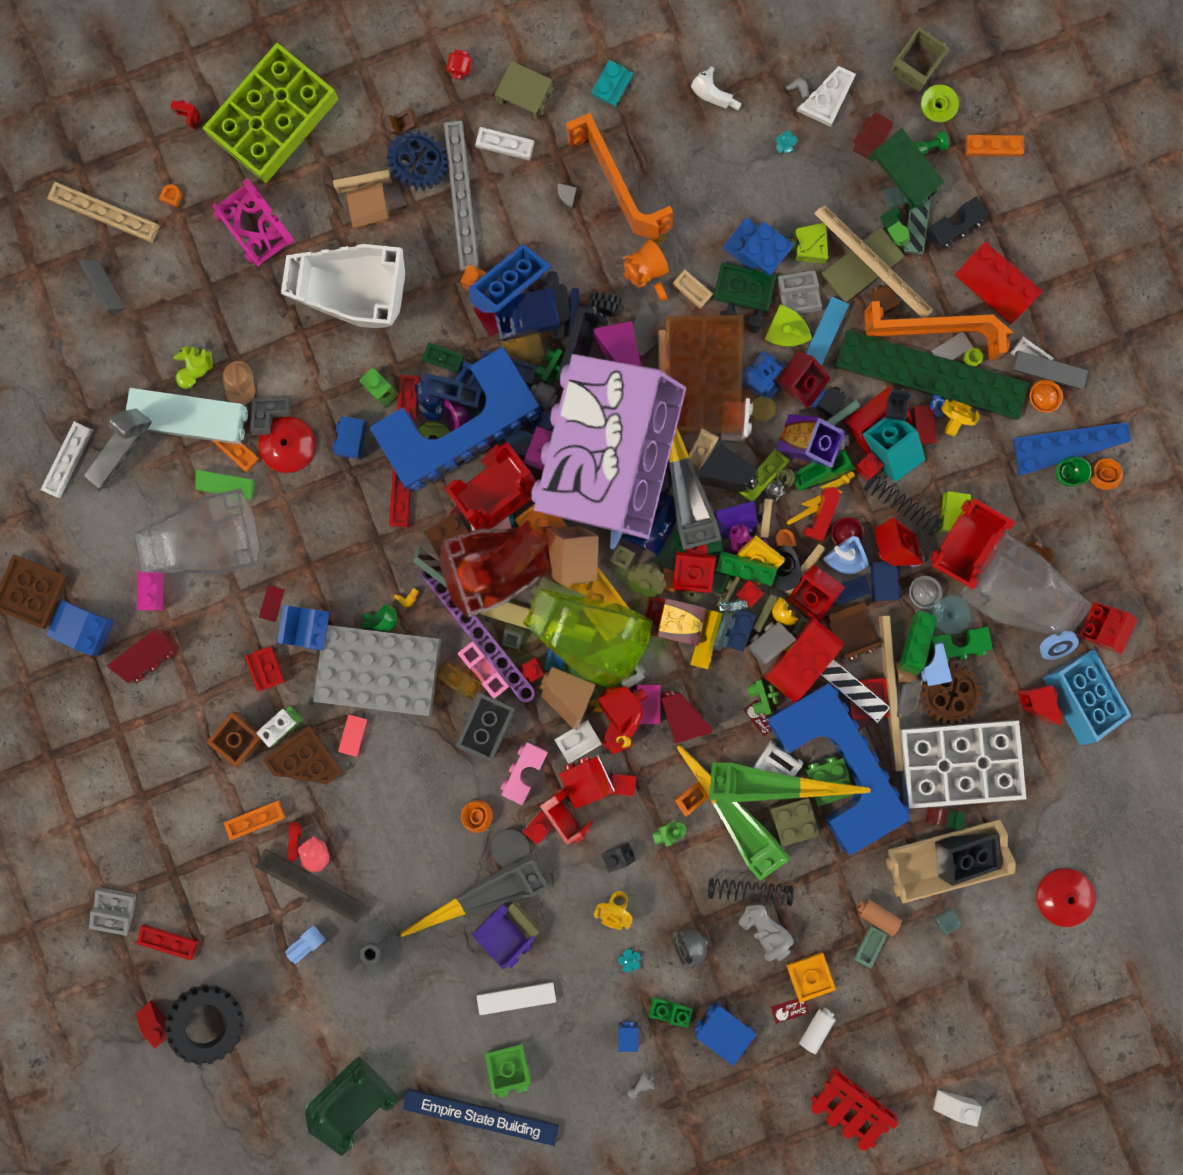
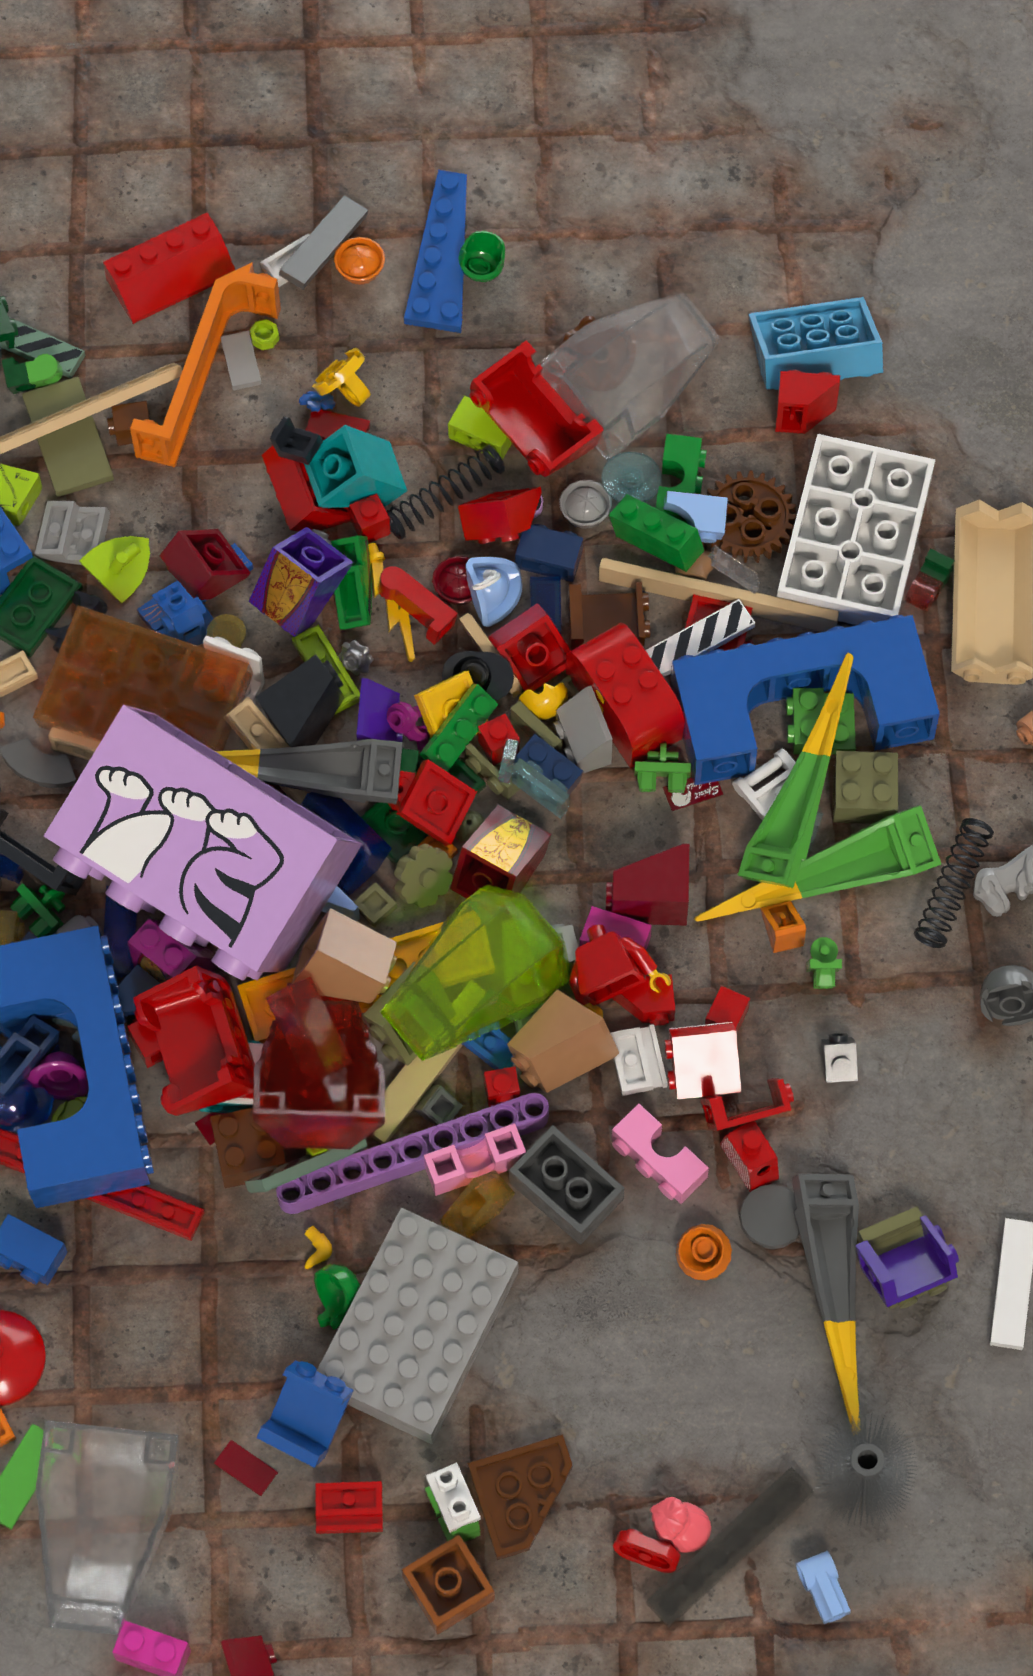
camera: 75 degrees left, 20 degrees down
(254, 820) = (592, 1604): orange plate -> none
(353, 735) = (507, 1403): coral tile -> none
(614, 915) = (924, 1087): yellow tile -> none
(618, 343) = (39, 797): magenta slope -> none
(630, 960) = (1006, 1096): teal plant -> none
(703, 652) = (565, 834): yellow tile -> none
(765, 511) = (394, 681): tan plate -> none
(785, 537) = (431, 668): orange tile -> none
(786, 476) = (333, 634): olive plate -> none
(827, 329) = (139, 510): dark azure tile -> none
(831, 401) = (253, 539): black brick -> none
(844, 413) = (276, 521): sand green tile -> none
(932, 374) = (264, 397): dark green plate -> none
(944, 233) = (56, 273): black arch -> none
(967, 856) = (995, 566): black slope -> none
(1058, 646) = (727, 352): light blue tile -> none
(1106, 474) = (502, 217): orange hat -> none
(1108, 627) = (725, 284): red slope -> none

